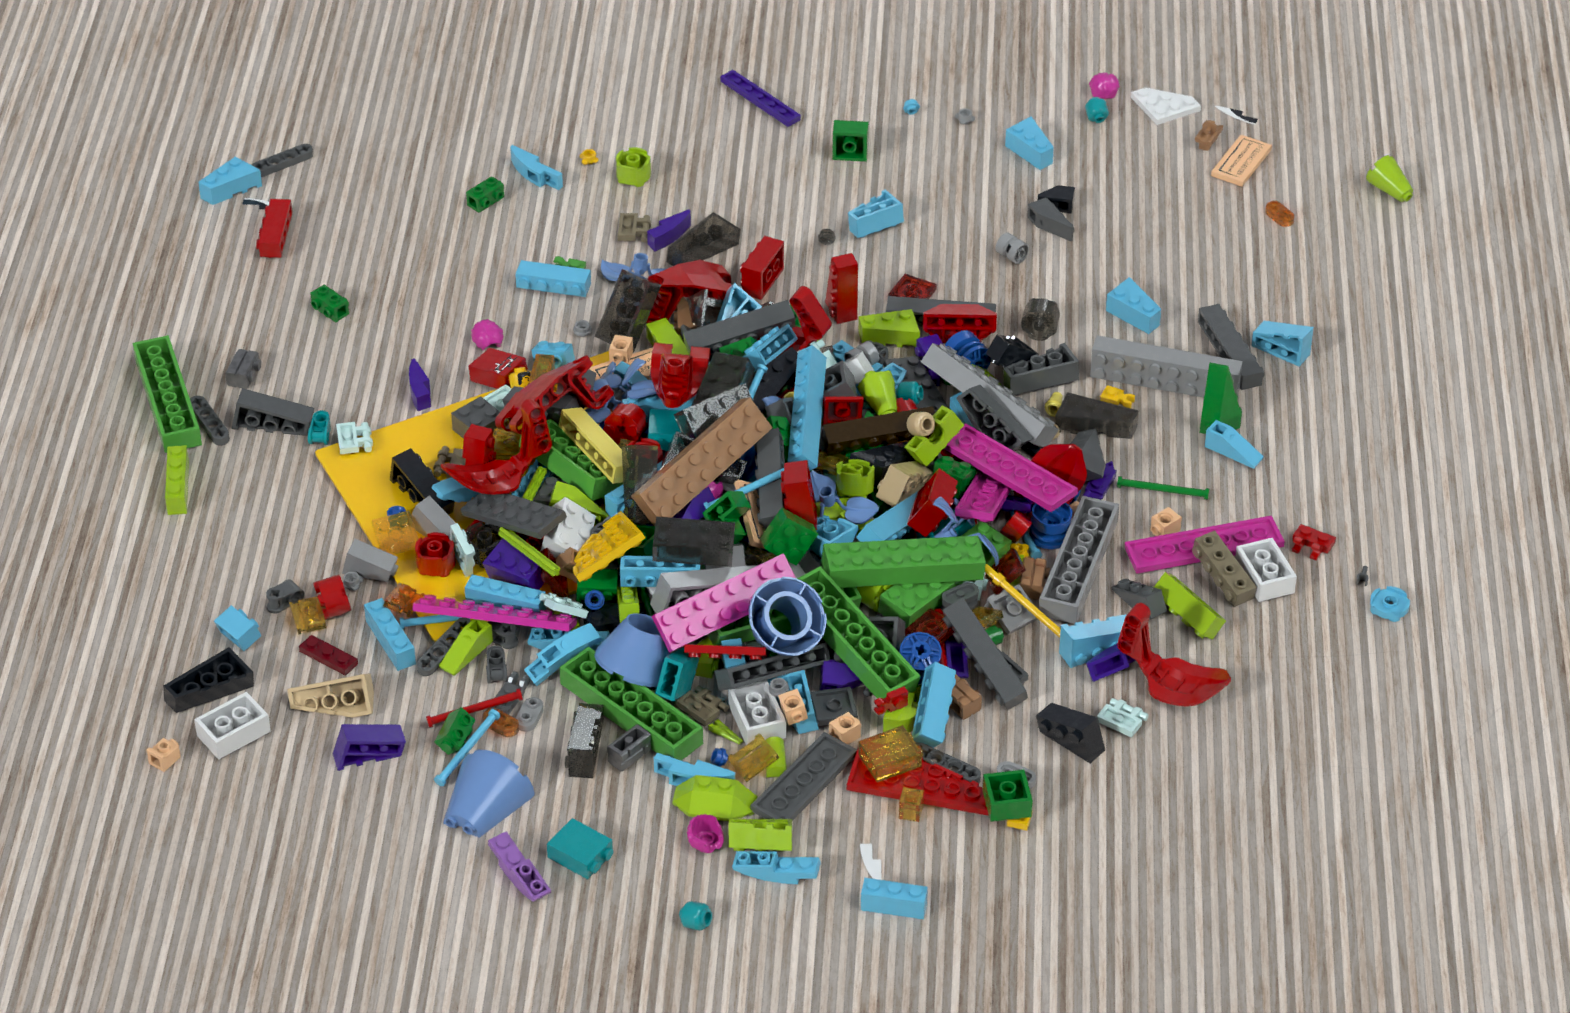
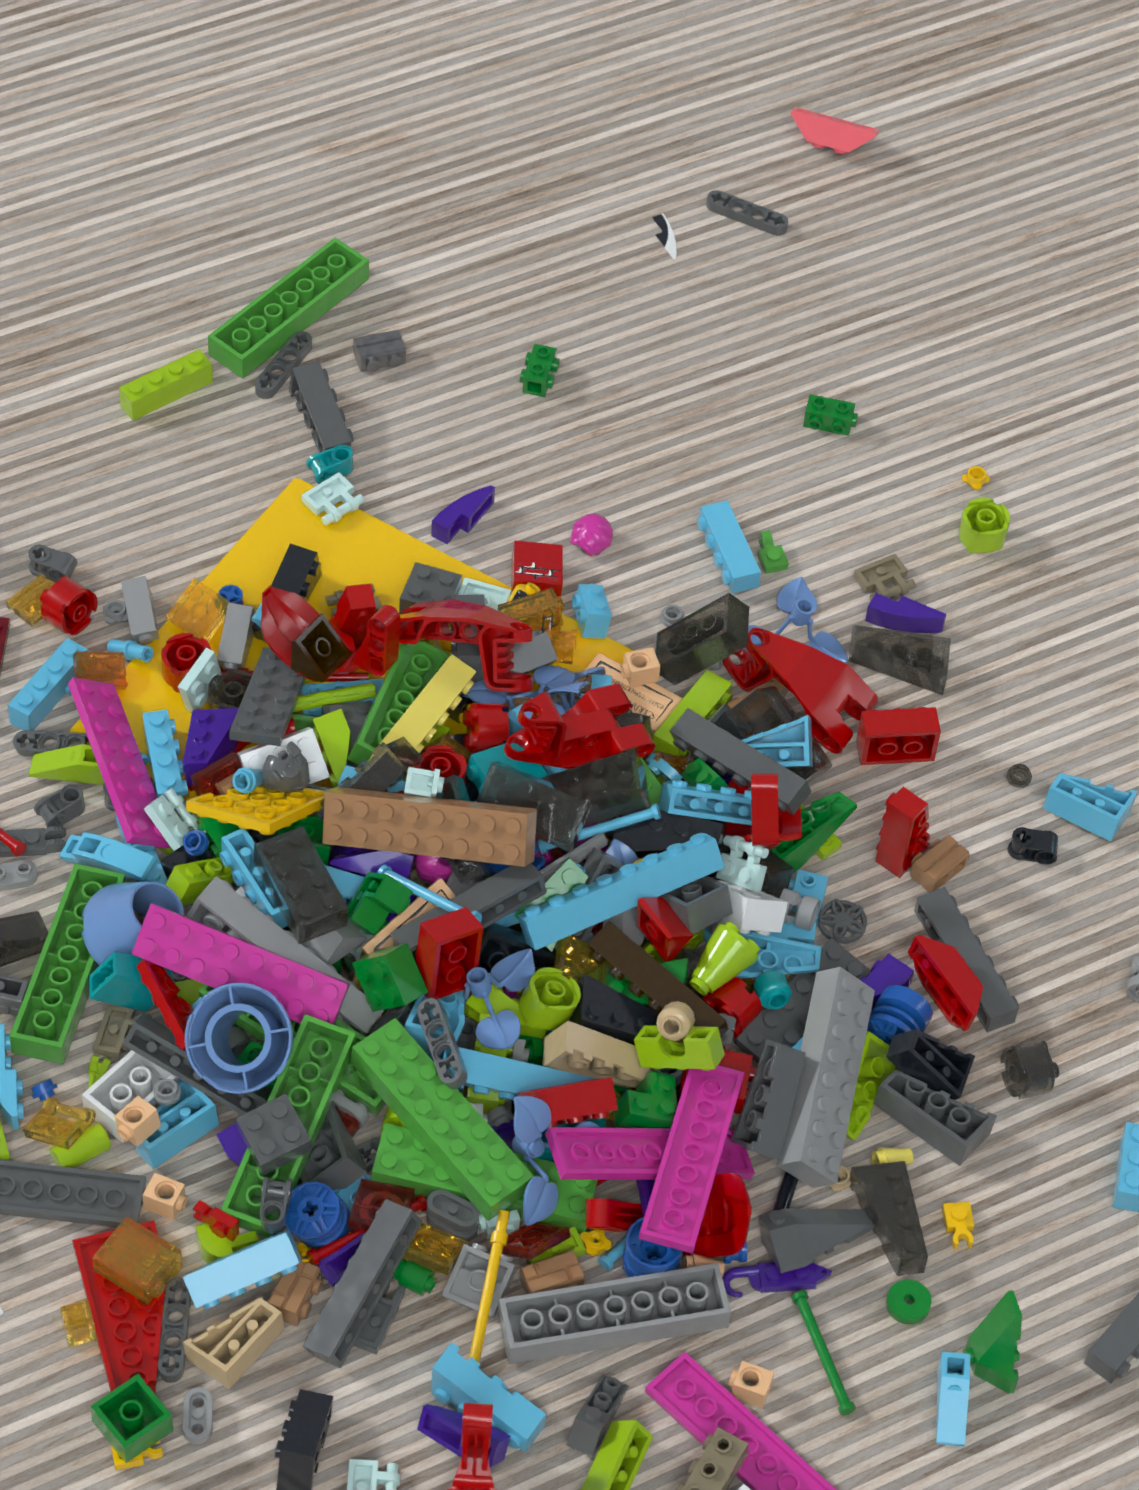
camera: 55 degrees right, 10 degrees up
(228, 180) = (669, 184): medium azure wedge -> none
(257, 91) = (832, 131): none -> coral wedge
(275, 228) = (622, 262): red brick -> none
(389, 586) = (131, 649): none -> medium azure pin
(503, 471) = (318, 650): none -> dark brown slope
(529, 551) = (214, 749): lime axle -> none
(530, 167) = (910, 435): medium azure slope -> none
(584, 543) = (247, 779): none -> medium azure cone
(592, 522) = (286, 771): none -> dark grey helmet
(672, 445) = (423, 782): none -> light aqua bracket
(832, 704) = (199, 1166): dark grey plate -> none
(860, 531) = (439, 1044): none -> dark grey beam
(864, 635) = (274, 1134): none -> dark grey brick
(867, 296) = (939, 863): none -> medium nougat brick
(883, 252) = (1035, 844): none -> black piece
(889, 328) = (893, 916): lime wedge -> none
(909, 661) = (275, 1199): none -> dark grey piece
(913, 288) = (992, 910): clear red tile -> none
(981, 733) = (235, 1344): none -> tan wedge
(1153, 439) = (905, 1312): none -> green piece
(1156, 366) = (1035, 1255): light grey brick -> none

